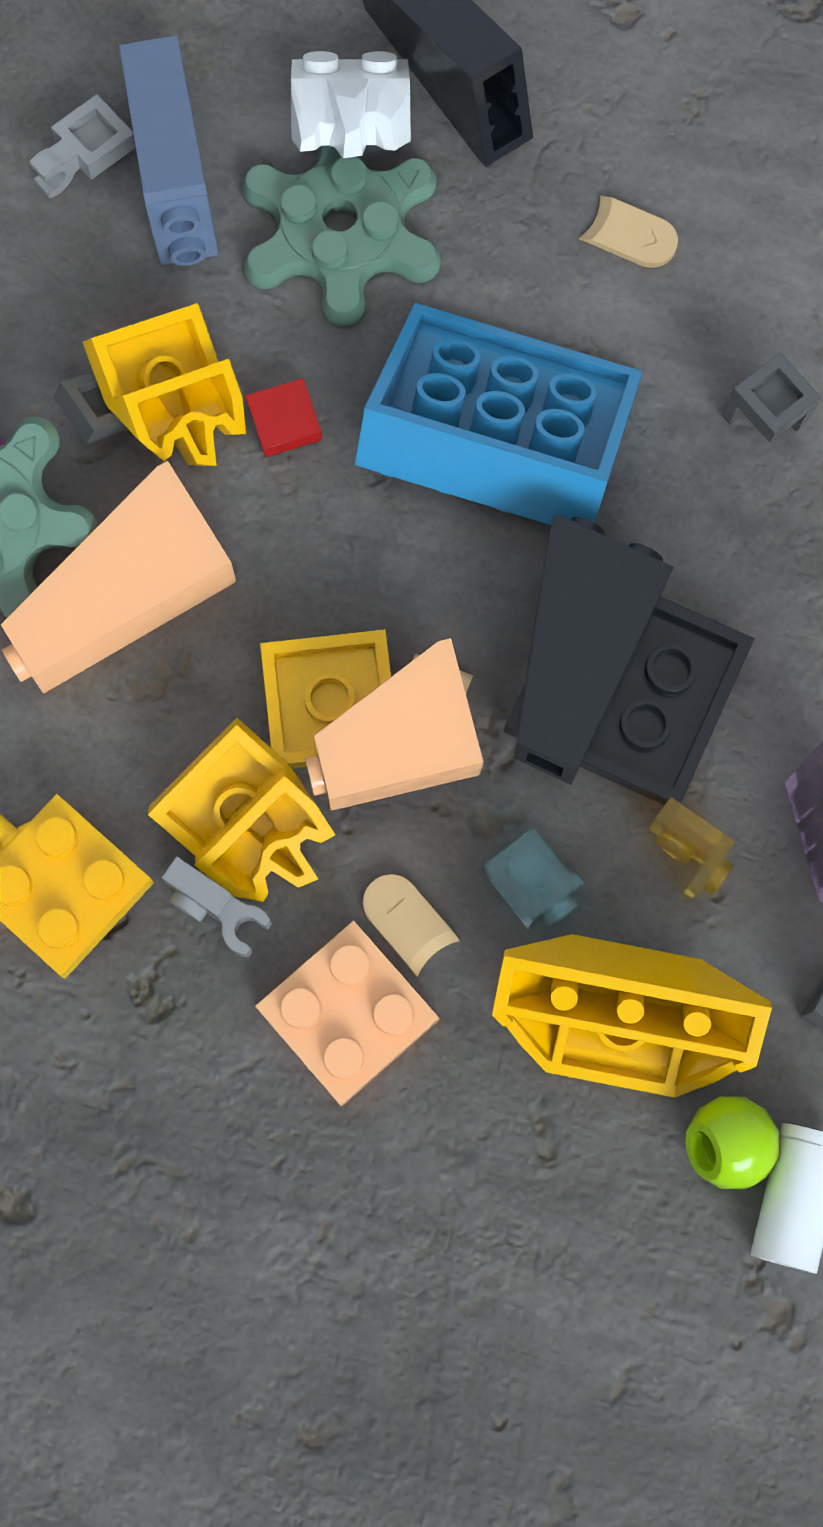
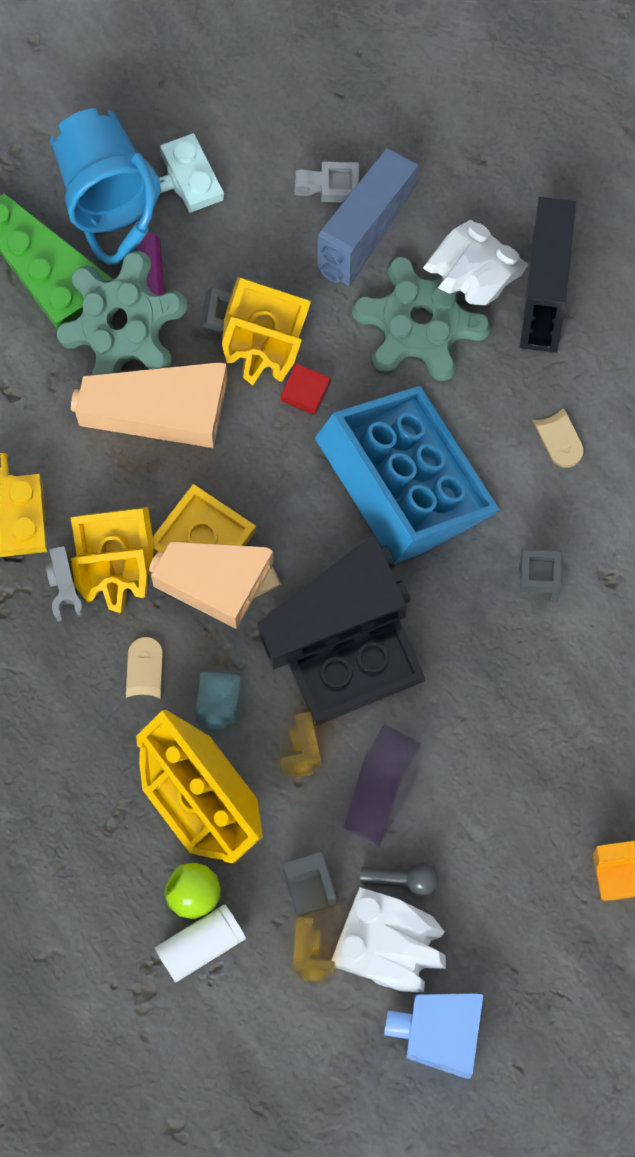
camera: 45 degrees right, 5 degrees down
(347, 1013) = (79, 685): light nougat plate -> none

